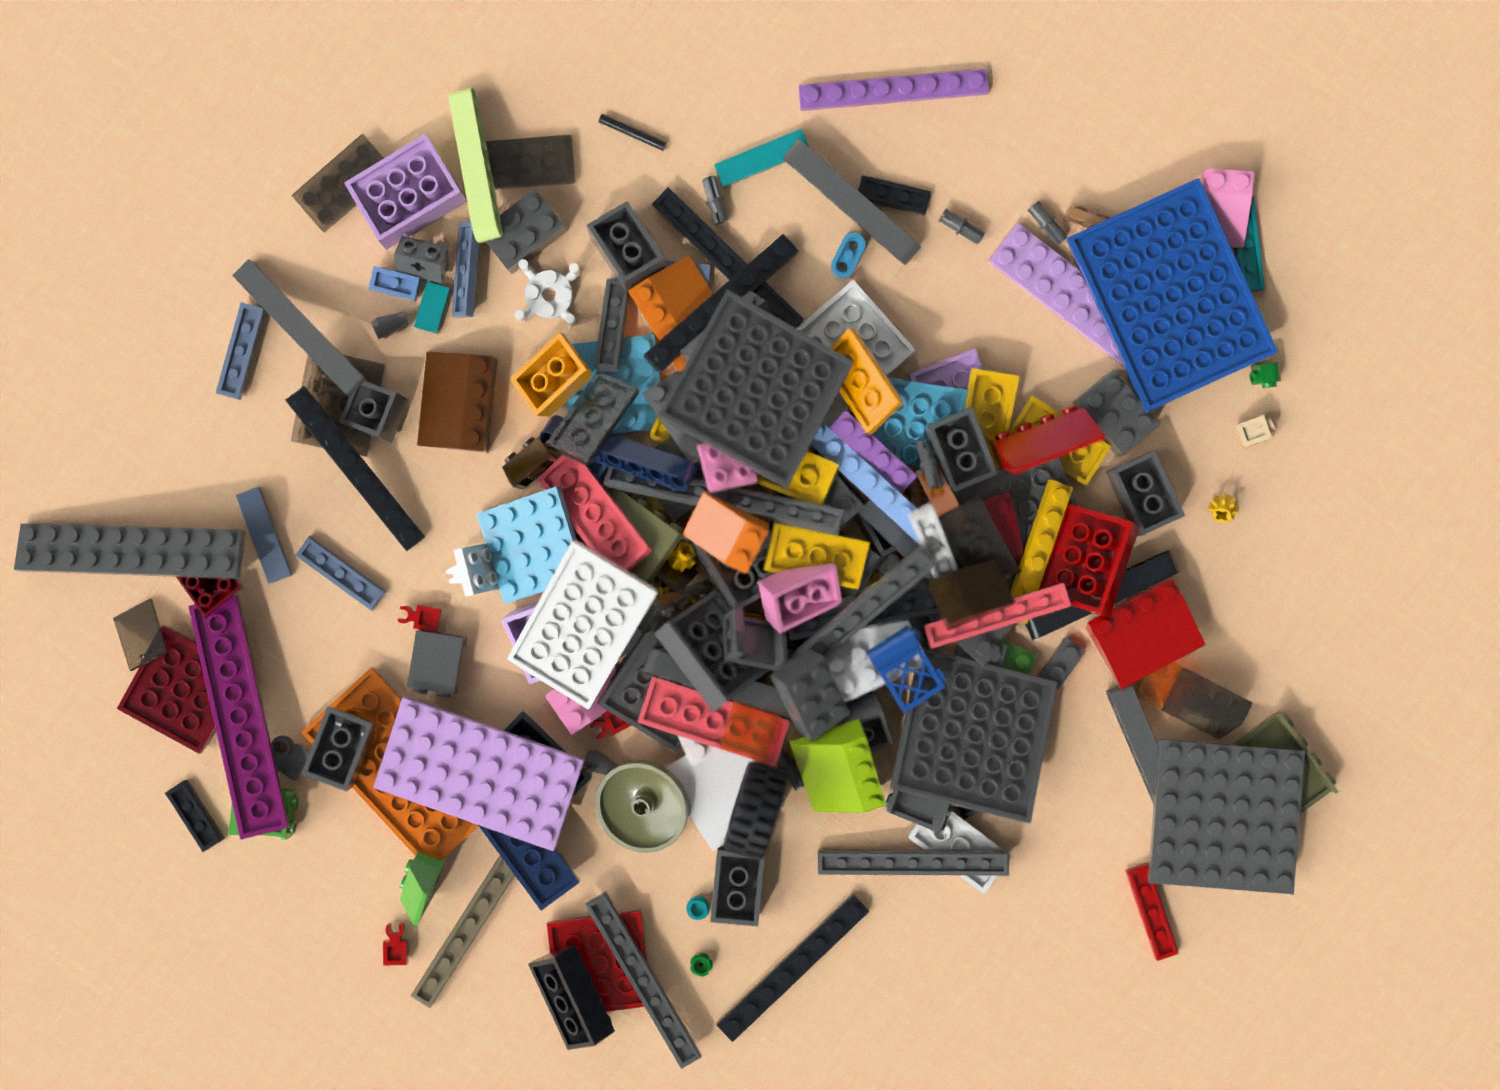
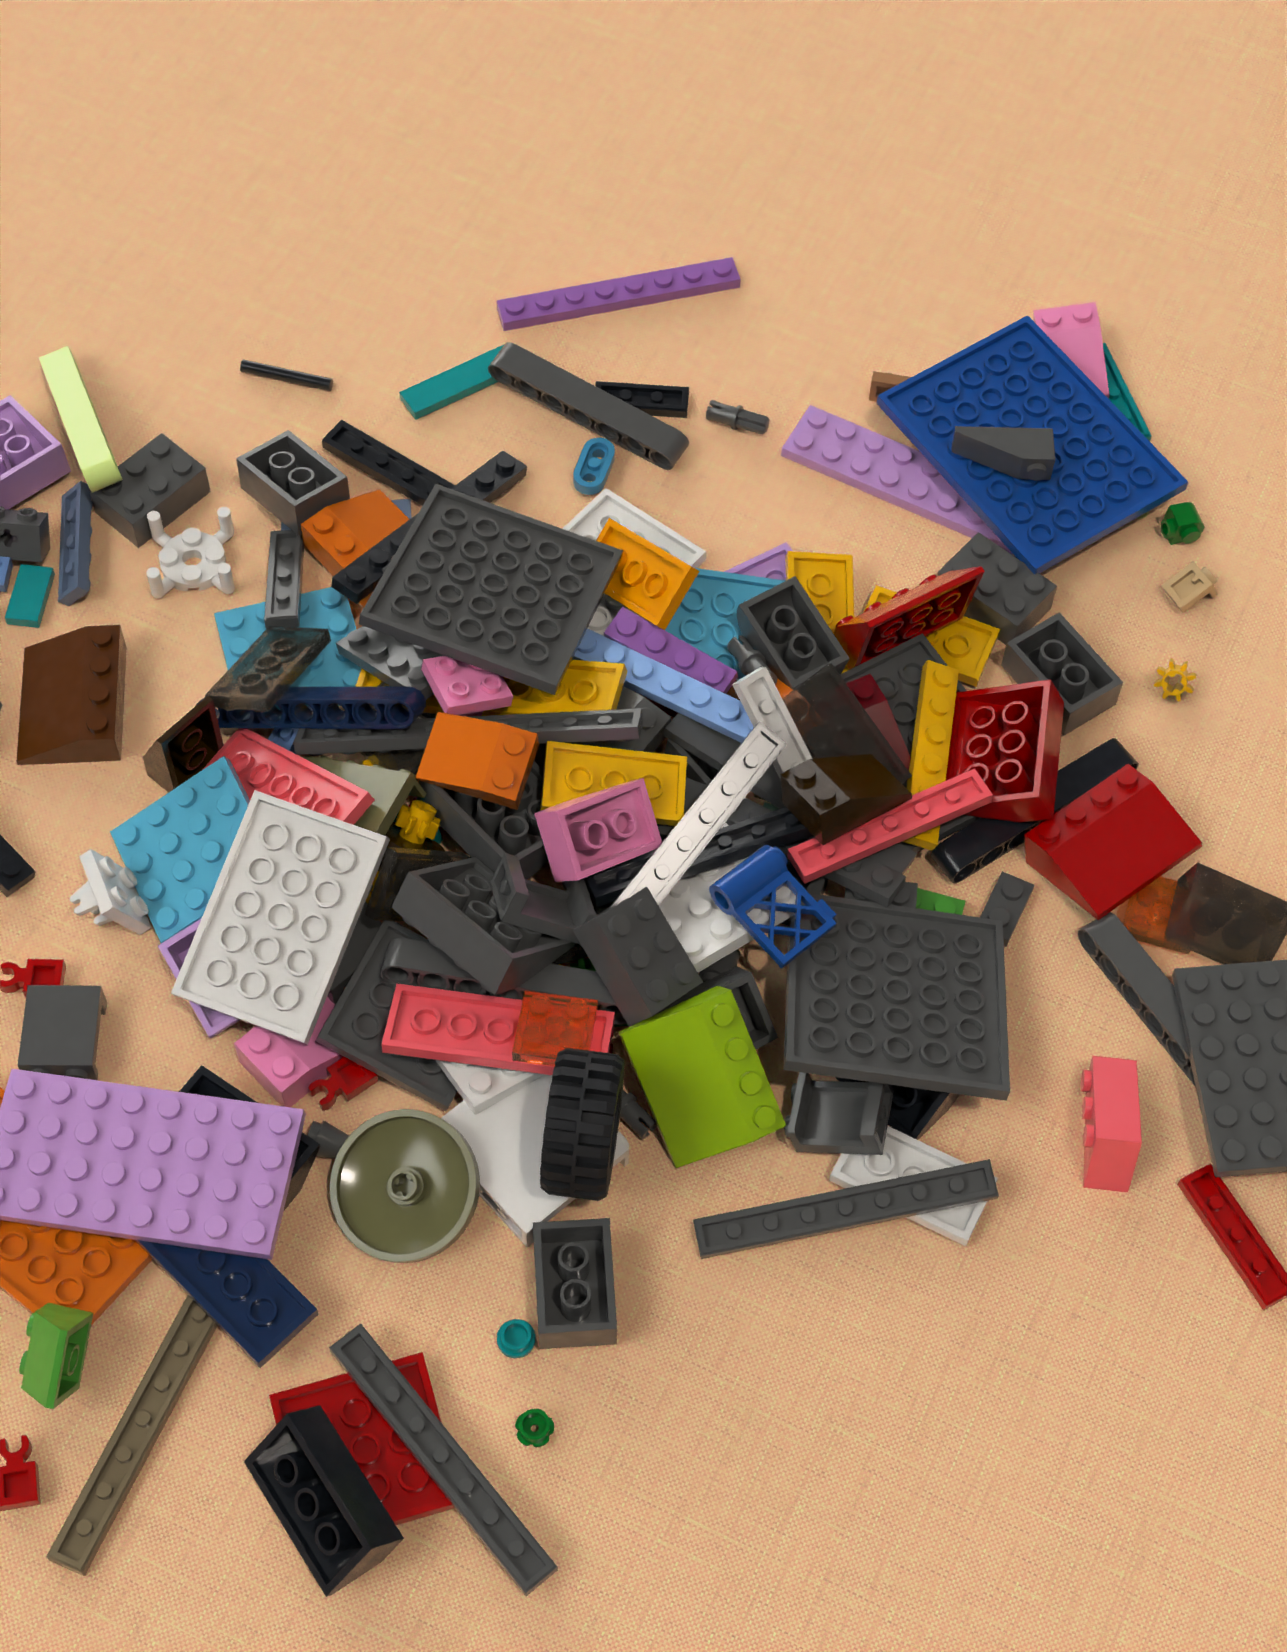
camera: 10 degrees left, 30 degrees down
(532, 161) = (177, 413): clear smoke plate -> none
(552, 376) = (208, 633): light orange brick -> none
(715, 200) = (406, 430): dark grey axle -> none
(792, 967) = (683, 1414): black plate -> none
(1047, 223) = (848, 400): dark grey axle -> none
(1093, 829) = (1111, 1123): none -> coral wedge
(1157, 313) = (1013, 451): none -> dark grey slope

